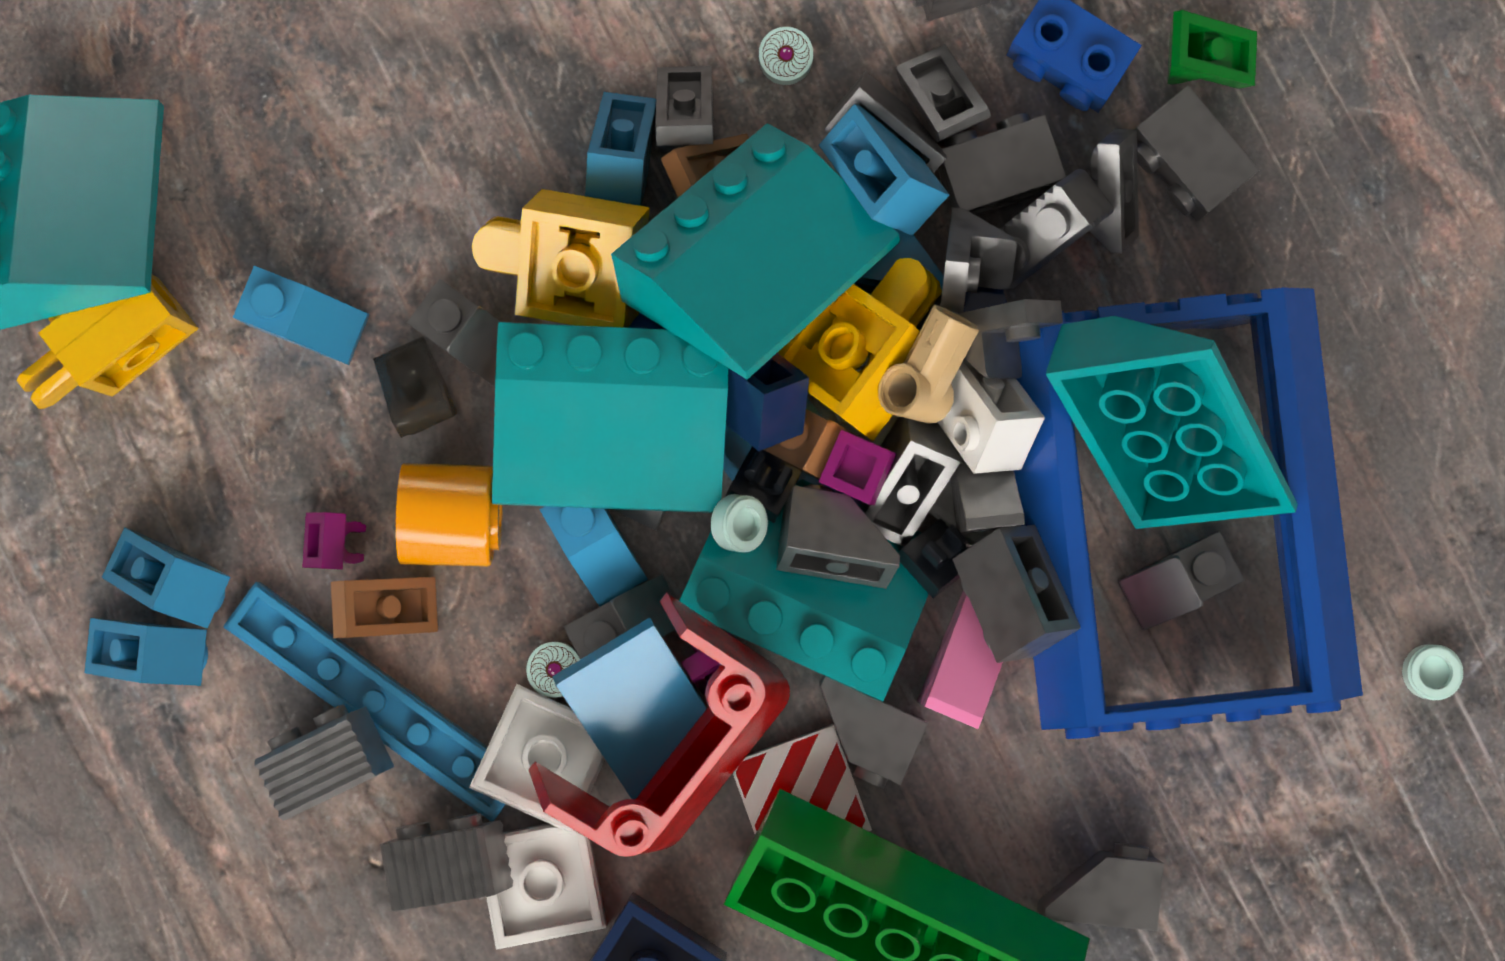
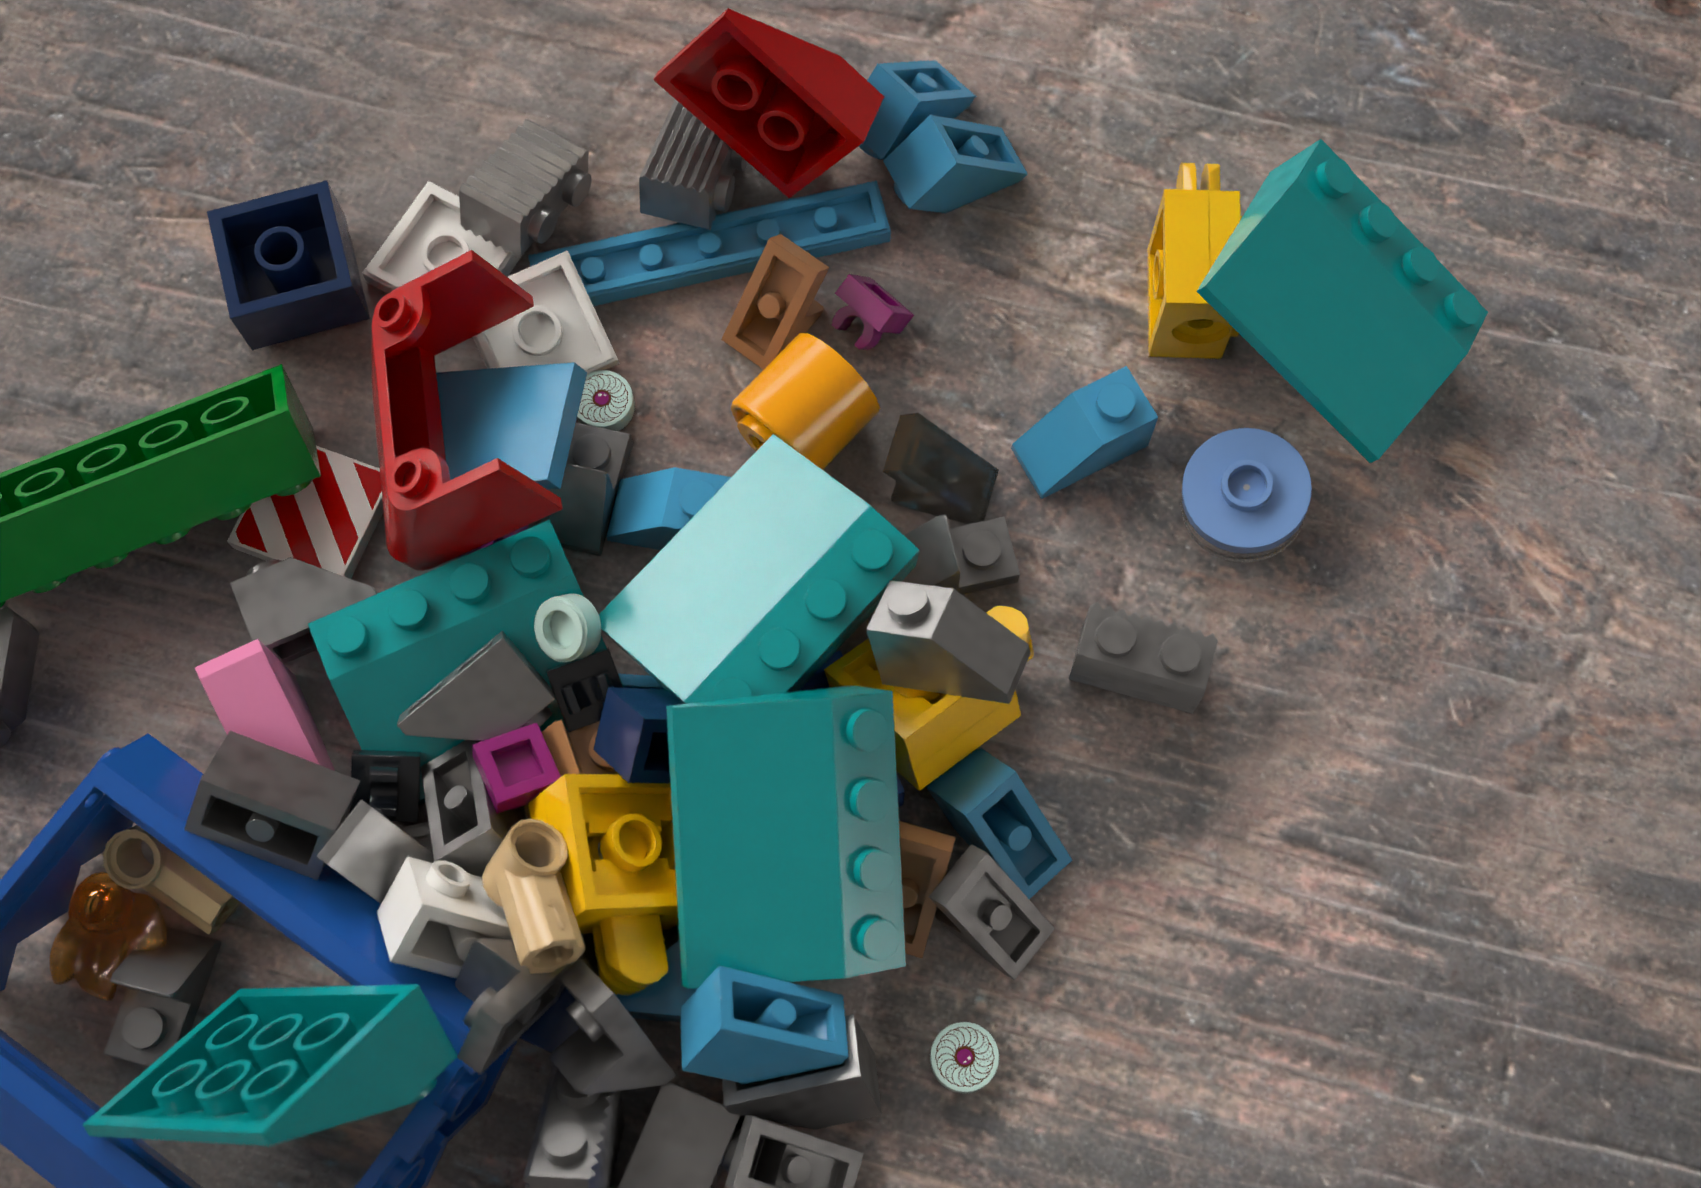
camera: 130 degrees right, 15 degrees down
(236, 720) = (772, 98): none -> red slope
(255, 173) = (1245, 495): none -> medium blue piece
(432, 147) = (1143, 658): none -> flat silver brick
(547, 253) = (944, 644): none -> flat silver slope
(1115, 641) = (168, 879): none -> tan piece
(1179, 643) = (100, 931): none -> clear orange plate

